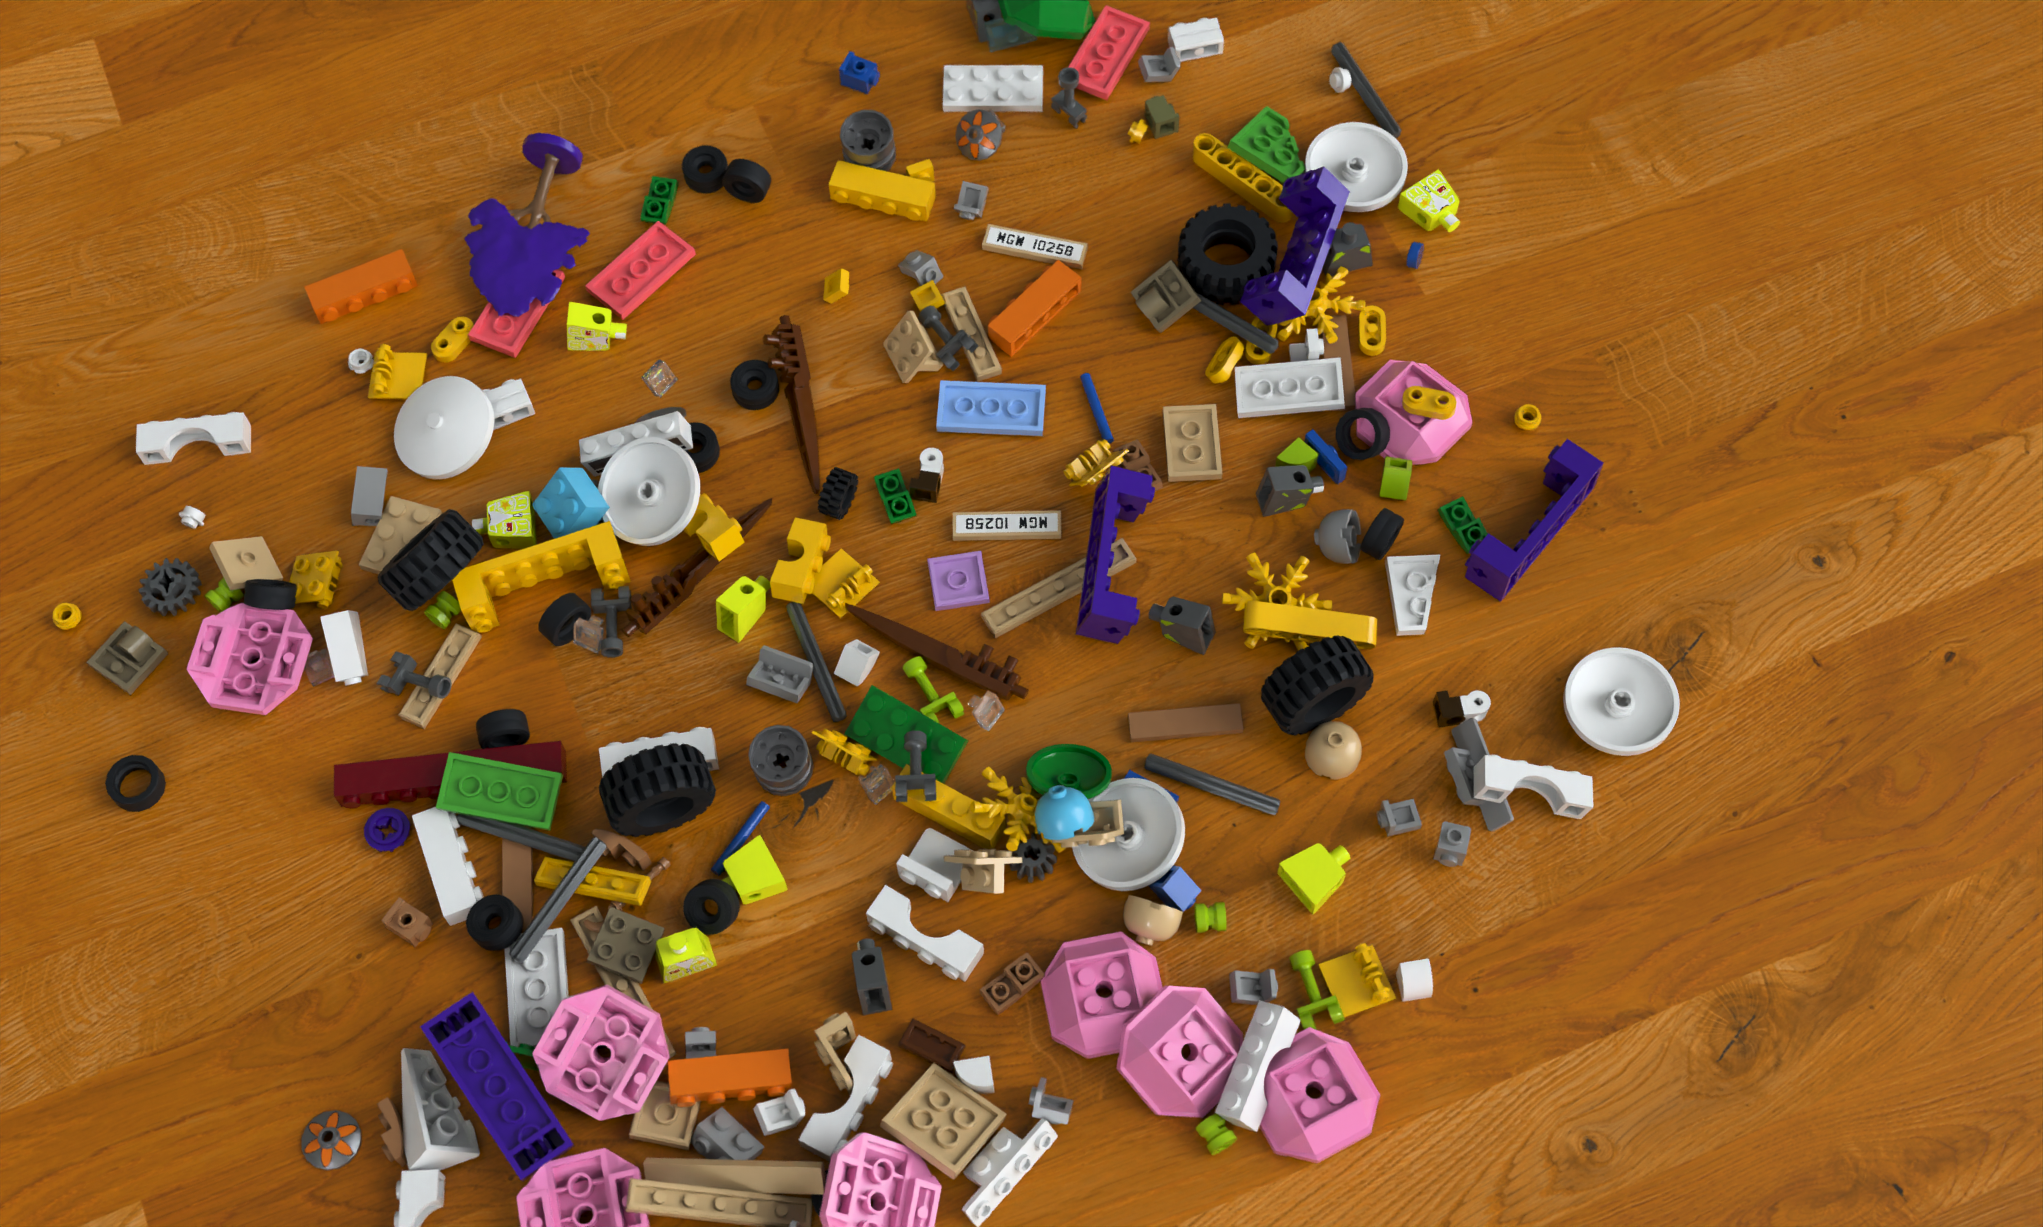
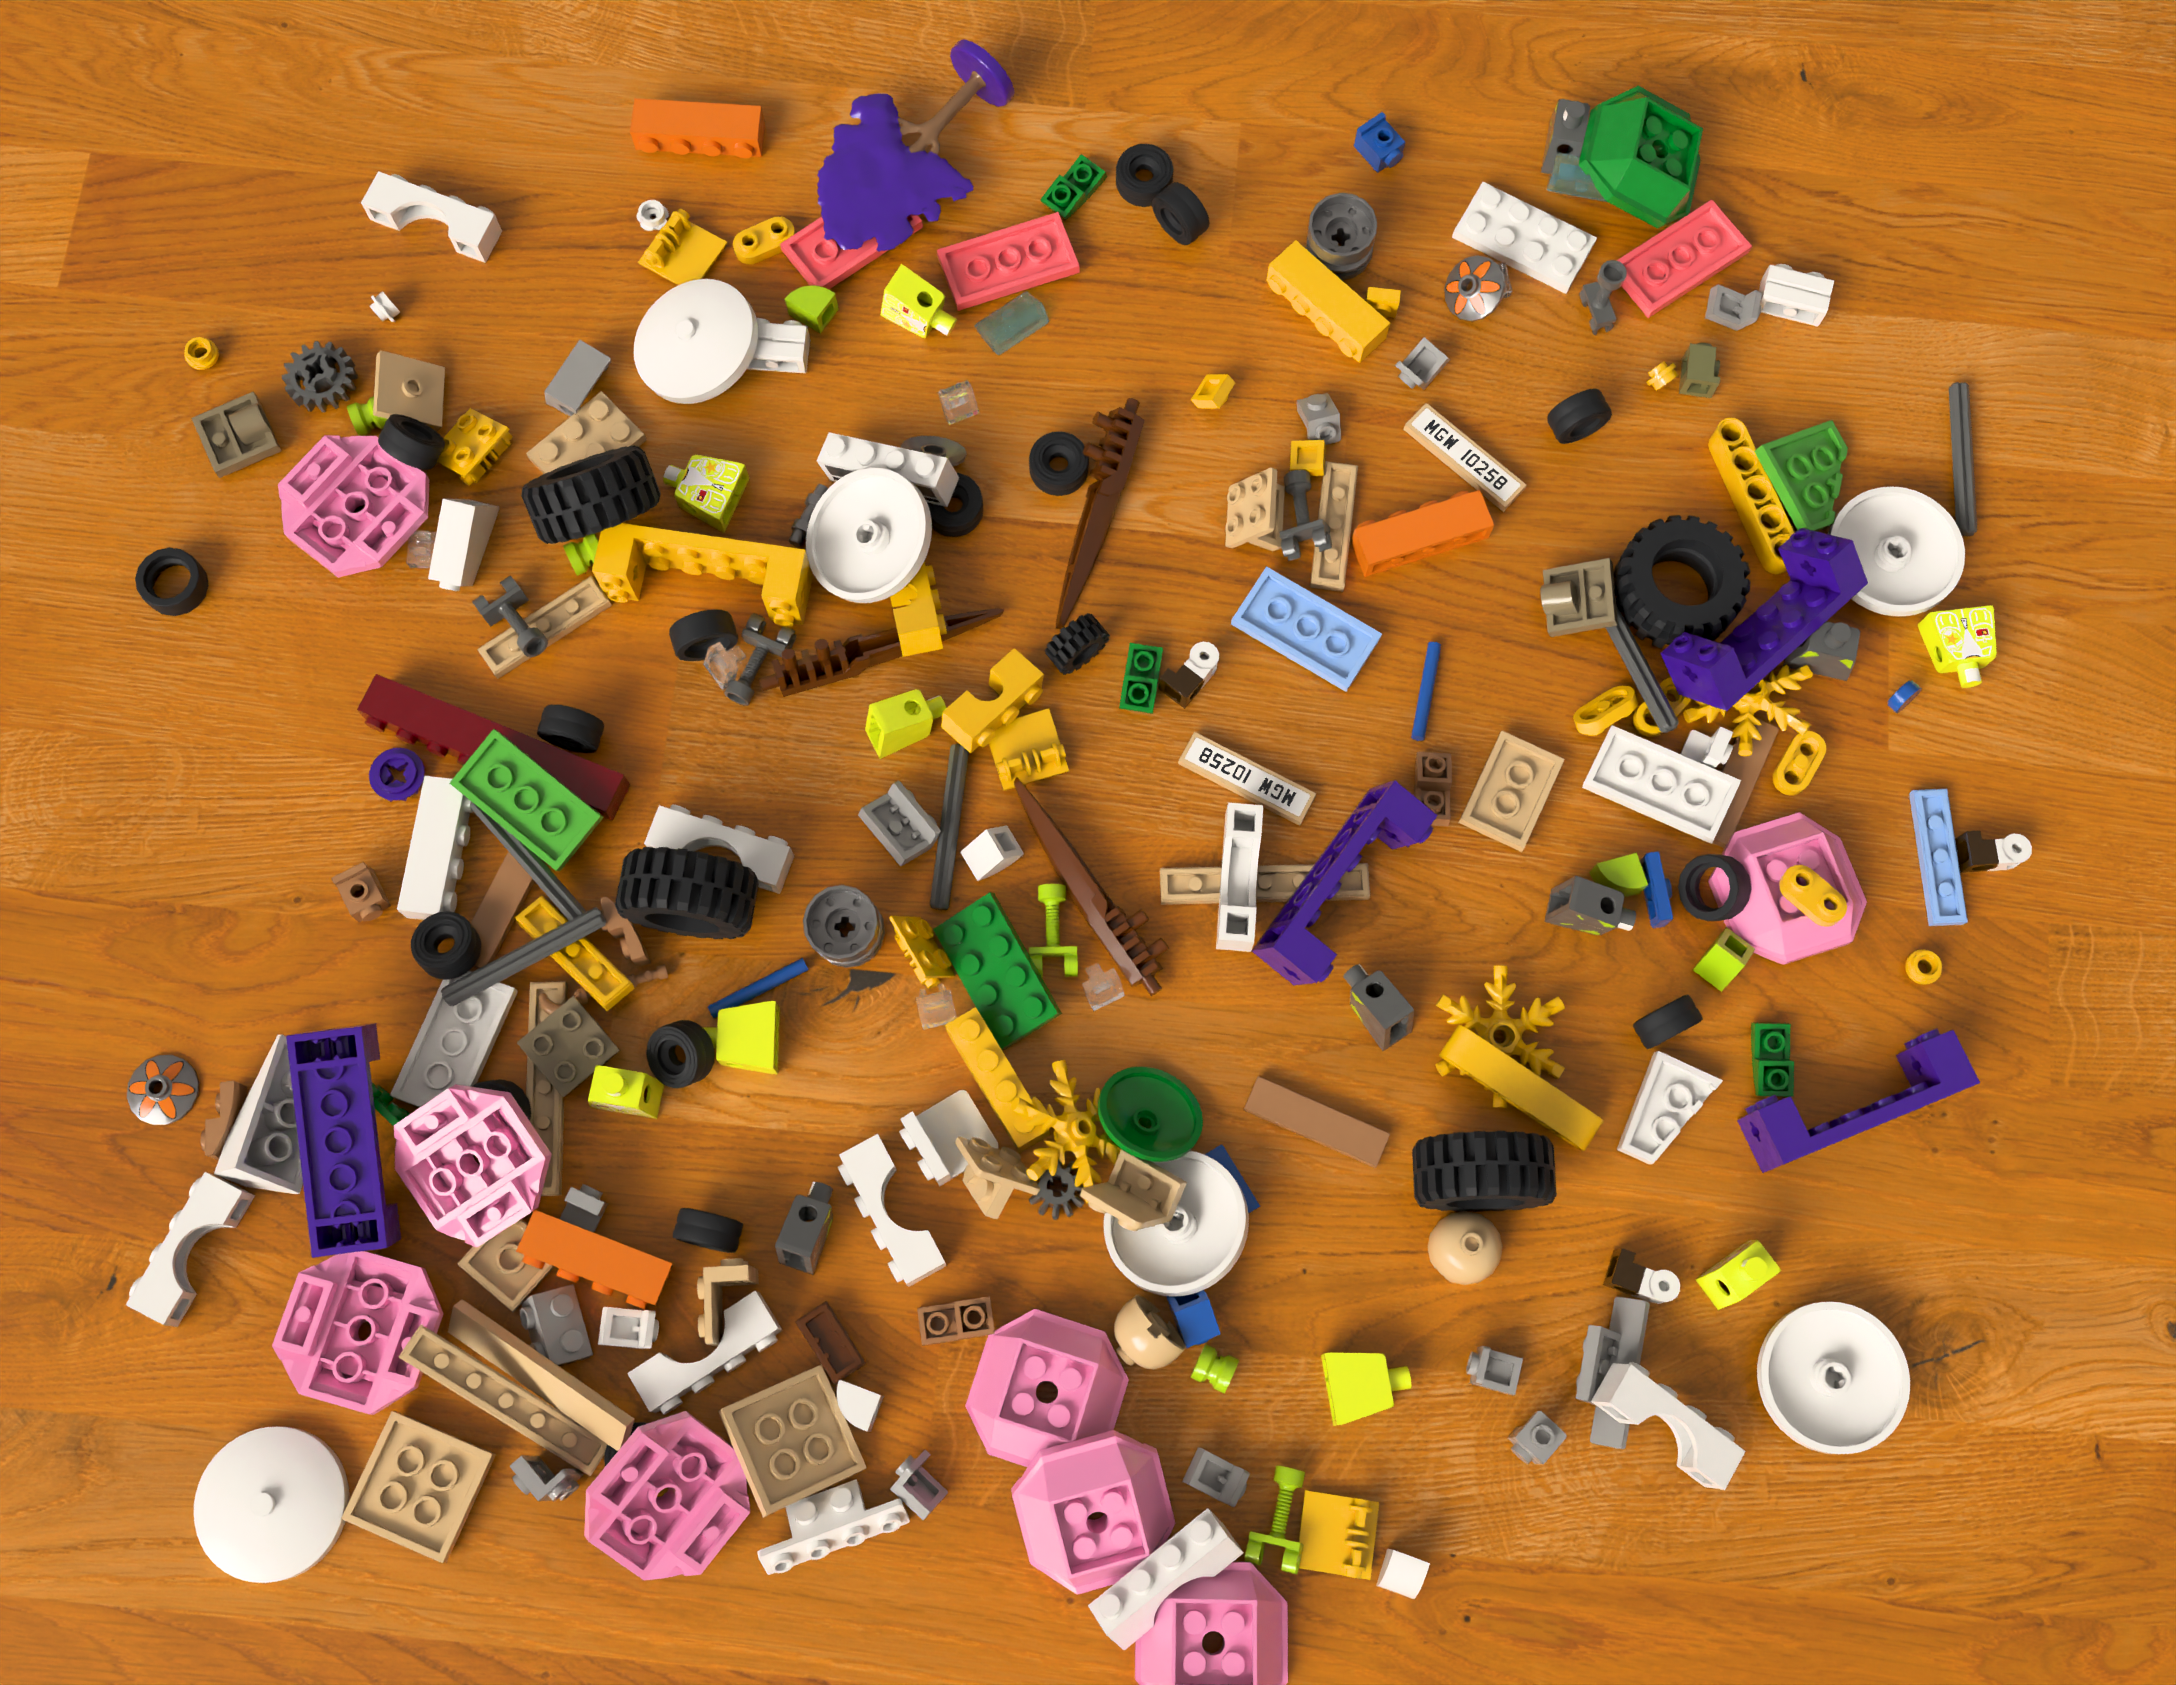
camera: 25 degrees right, 10 degrees up
(515, 364) = (812, 306): none -> lime brick
(570, 502) = (779, 504): medium azure brick -> none
(667, 309) = (1012, 323): none -> clear light blue slope
(800, 1013) = (707, 1230): none -> black tyre
(915, 743) = (997, 989): dark grey bar -> none
(958, 580) = (1157, 815): lavender tile -> none
(1032, 573) = (1239, 877): none -> white arch
(1062, 813) = (1109, 1169): medium azure cylinder -> none
(1090, 467) = (1373, 772): yellow hinge -> none
(1097, 181) = (1579, 416): none -> black tyre
(1212, 784) = (1306, 1212): dark grey axle -> none
(1216, 1133) = (1079, 1624): lime wheel -> none
(1339, 535) = (1615, 997): light grey cylinder -> none
(1340, 79) = (1939, 430): white plate -> none
(1496, 345) = (1938, 857): none -> light blue tile
(1523, 664) = (1741, 1272): none -> neon yellow torso
(1528, 325) = (1991, 854): none -> leg

